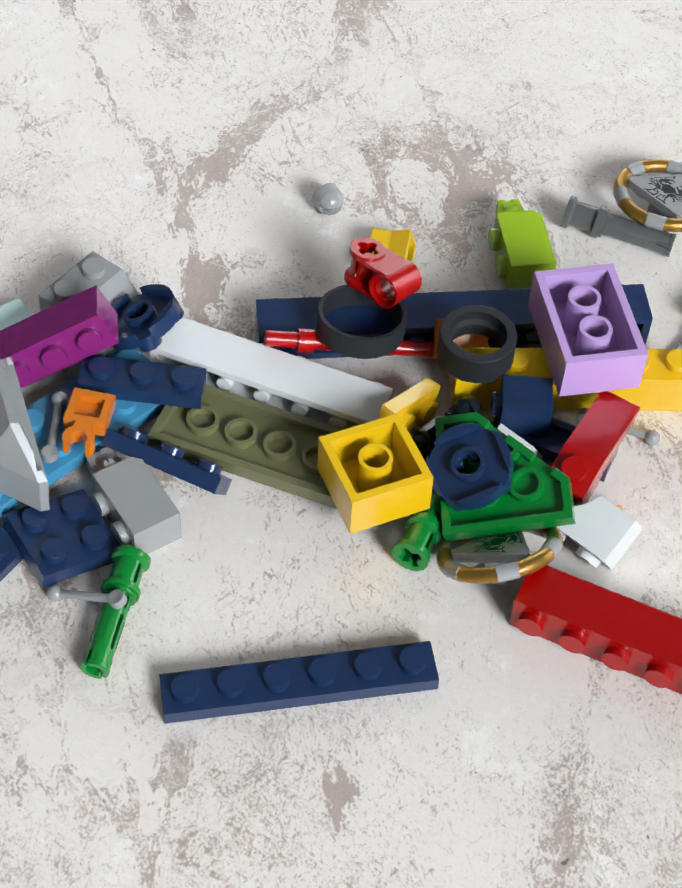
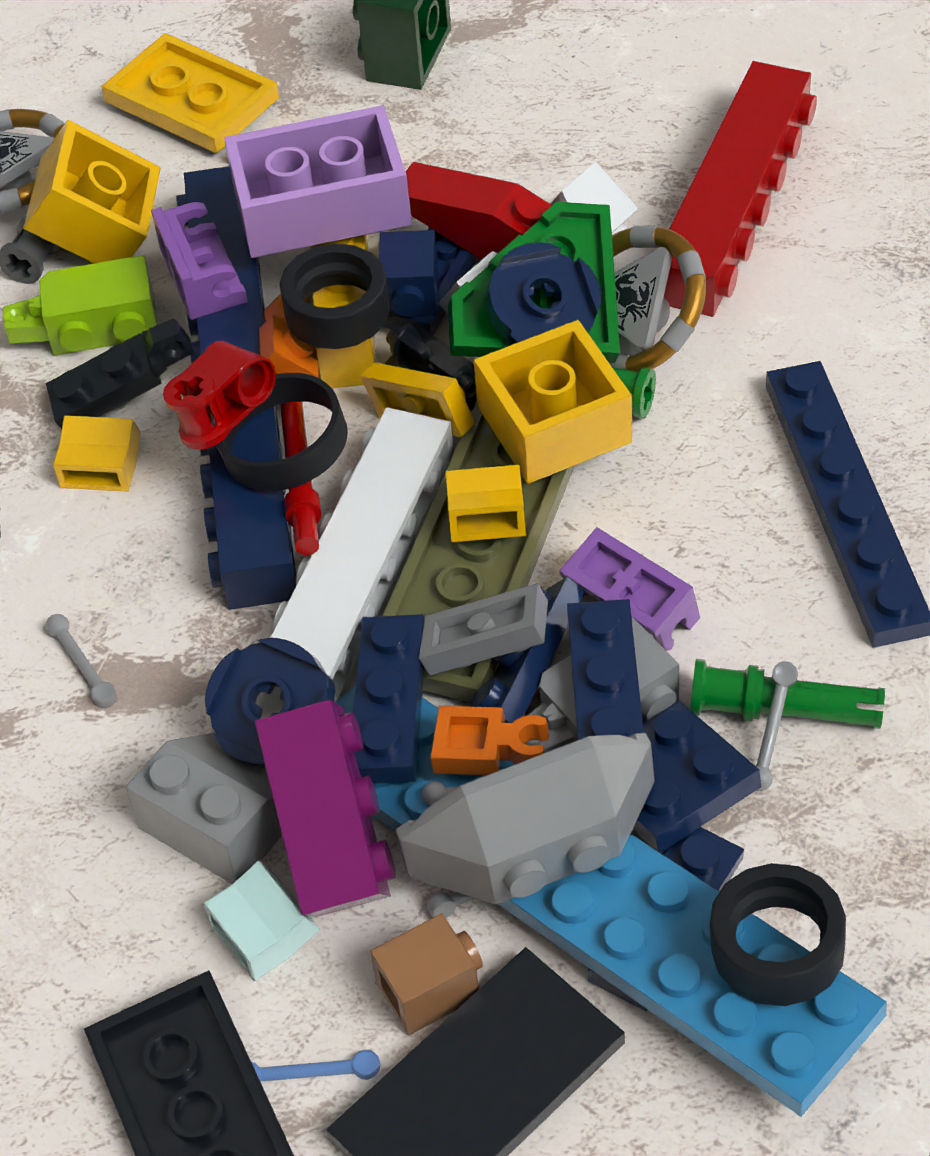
camera: 85 degrees left, 0 degrees up
(117, 486) = (604, 668): none -> dark blue plate
(174, 424) = (484, 629): none -> light grey plate
(196, 264) = (102, 692): none -> light grey hinge
(218, 526) = (617, 572): none -> medium lavender hinge
(294, 439) = (485, 503): none -> yellow piece
(449, 256) = (118, 373): none -> black hinge
(513, 275) = (197, 261): none -> medium lavender hinge
(614, 230) = (92, 196): none -> yellow brick

